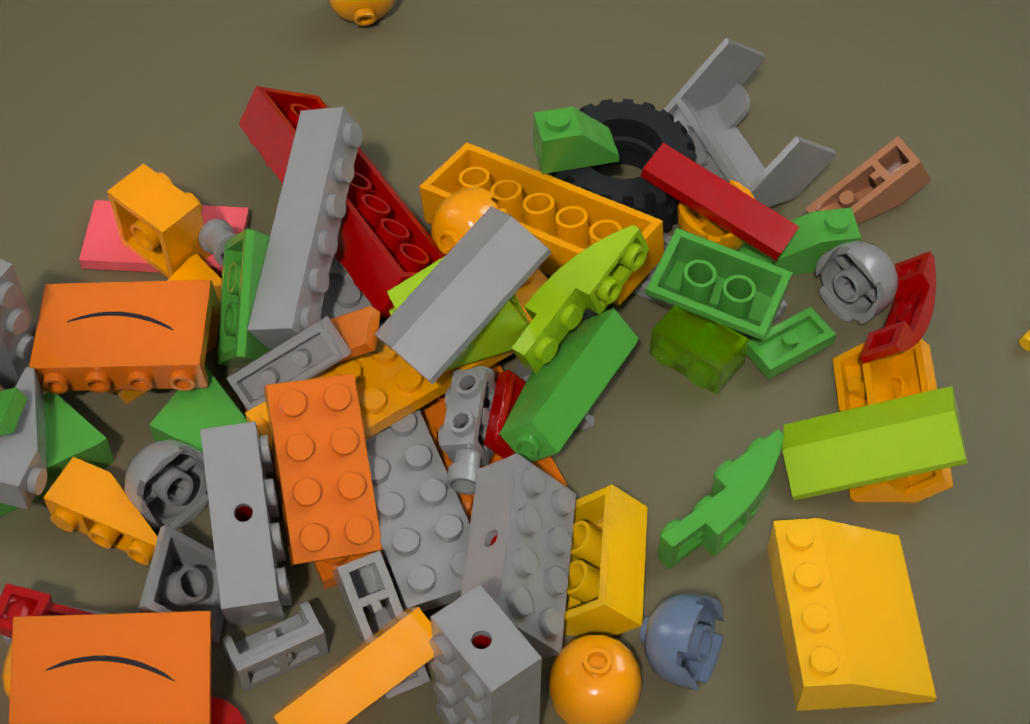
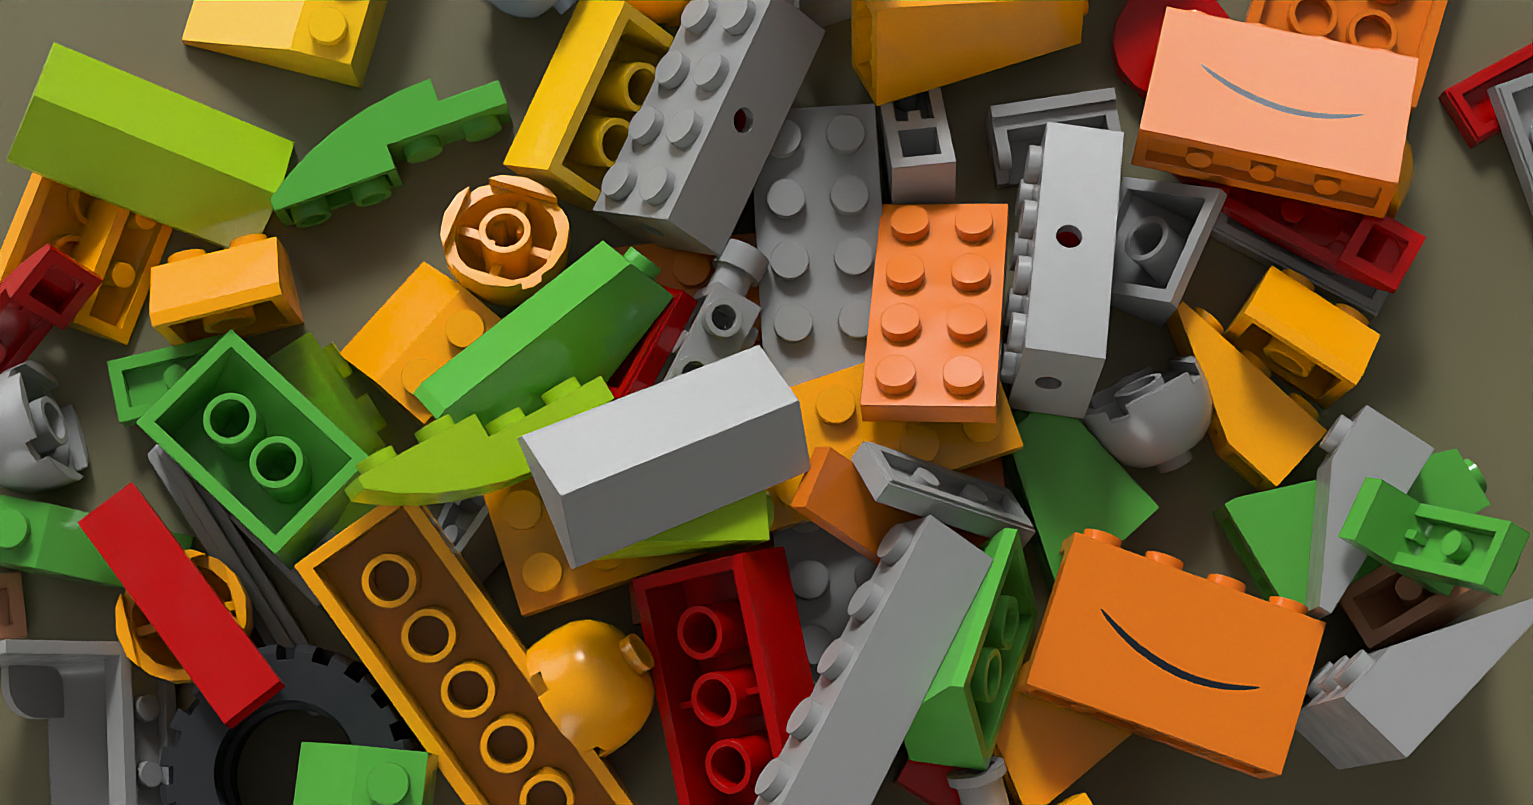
camera: 165 degrees left, 25 degrees up
(69, 553) = (1303, 336): none -> light orange slope
(623, 449) = (505, 239): none -> light orange cylinder
(648, 400) = (416, 335): none -> light orange slope
(785, 379) = (228, 289): none -> light orange slope

